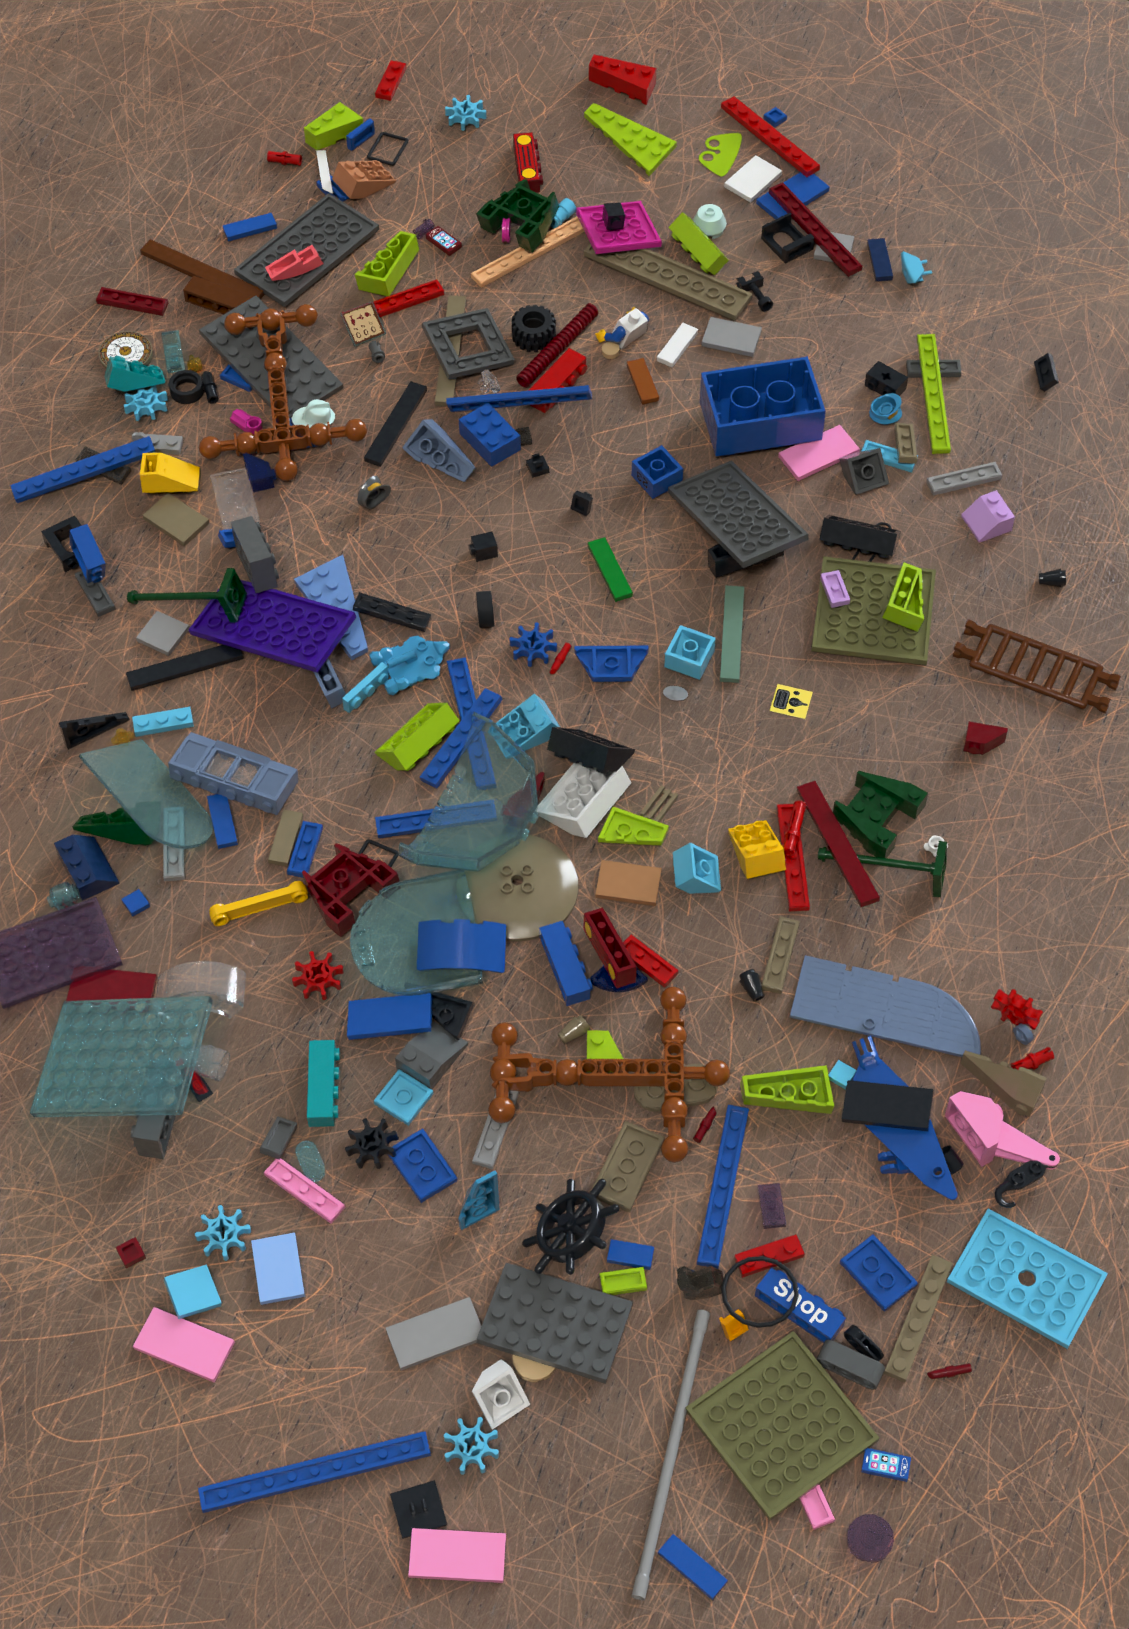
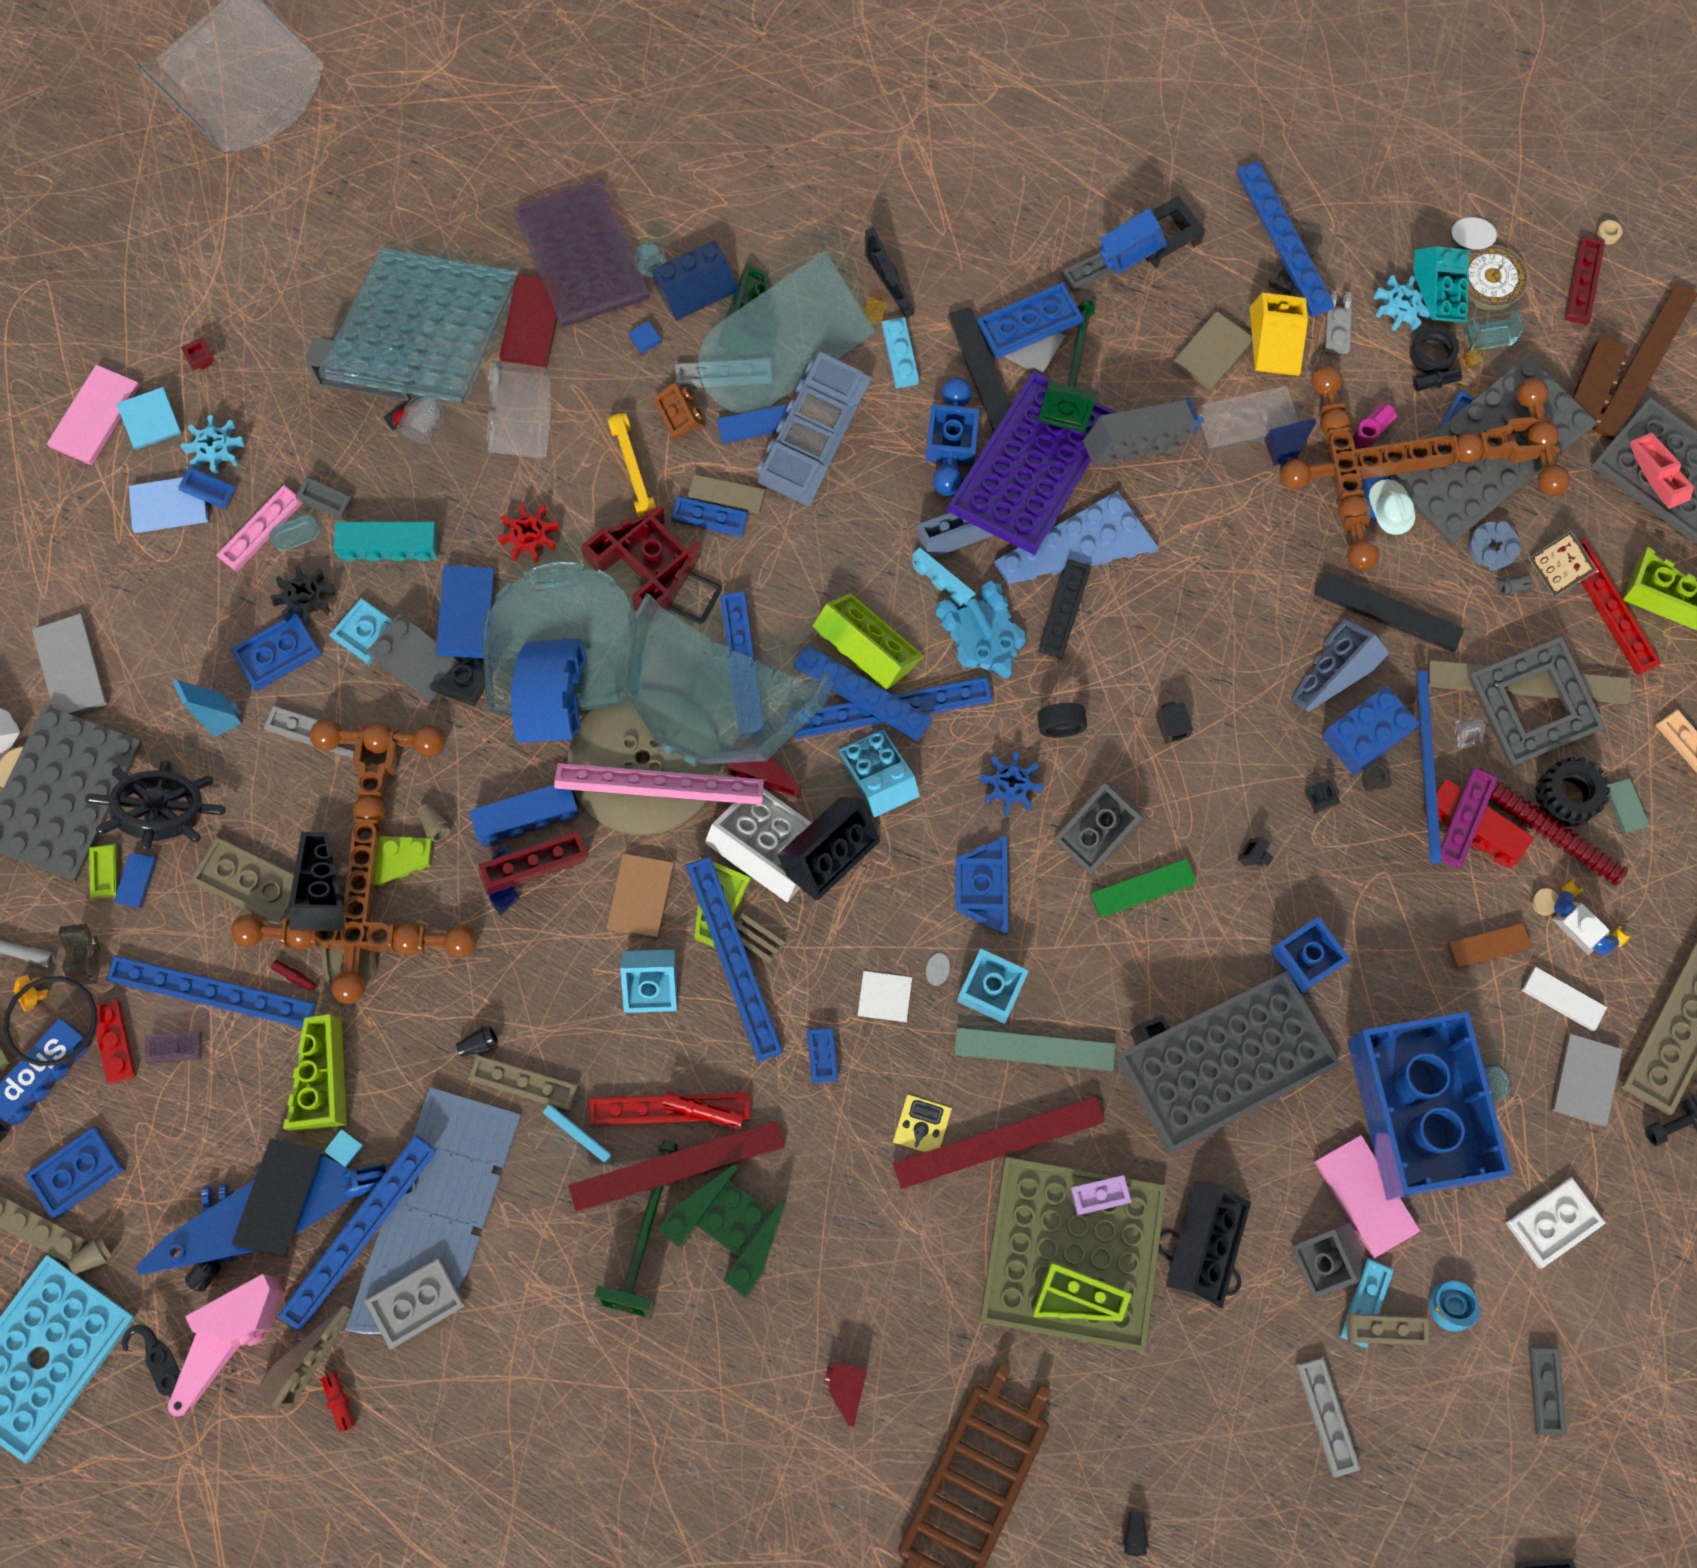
camera: 90 degrees right, 15 degrees up
(87, 360) = (1474, 233): none -> white sticker
(92, 285) = (1609, 231): none -> tan tile
(143, 631) = (1029, 320): none -> blue tile
(209, 872) = (678, 410): none -> dark orange bracket
(244, 680) = (952, 435): none -> blue brick
(266, 1232) = (207, 488): none -> blue tile
(349, 355) = (1497, 532): none -> sand blue plate
(372, 493) = (1257, 578): dark grey piece -> none
(542, 864) = (659, 783): none -> bright pink plate
(548, 301) = (1627, 806): none -> sand green tile
(550, 378) = (1467, 817): none -> magenta tile
(560, 658) = (993, 820): red piece -> none
(566, 590) = (1100, 827): none -> dark grey slope
(636, 1094) = (315, 890): none -> black wedge
(650, 962) = (522, 914): red plate -> none
(676, 814) = (734, 959): none -> blue tile
(697, 725) = (884, 996): none -> white sticker
(746, 759) = (822, 1055): none -> blue plate
(757, 849) = (680, 1060): yellow slope -> none
(801, 655) = (998, 1142): none -> dark red tile
(818, 911) = (579, 1135): none -> medium azure tile
(827, 358) = (1555, 1223): none -> white tile
(885, 380) = (1523, 1305): black brick -> none
(902, 1049) = (357, 1232): none -> blue tile
(933, 394) = (1492, 1383): lime tile -> none
(933, 841) = (683, 1305): white plate -> none
(944, 1245) = (90, 1256): none -> dark tan cone
(954, 1012) = (414, 1303): none -> light grey tile
(988, 517) = (1247, 1444): lavender slope -> none
(1016, 1009) = (398, 1384): red gear -> none
(1023, 1034) = (374, 1393): sand blue tile -> none

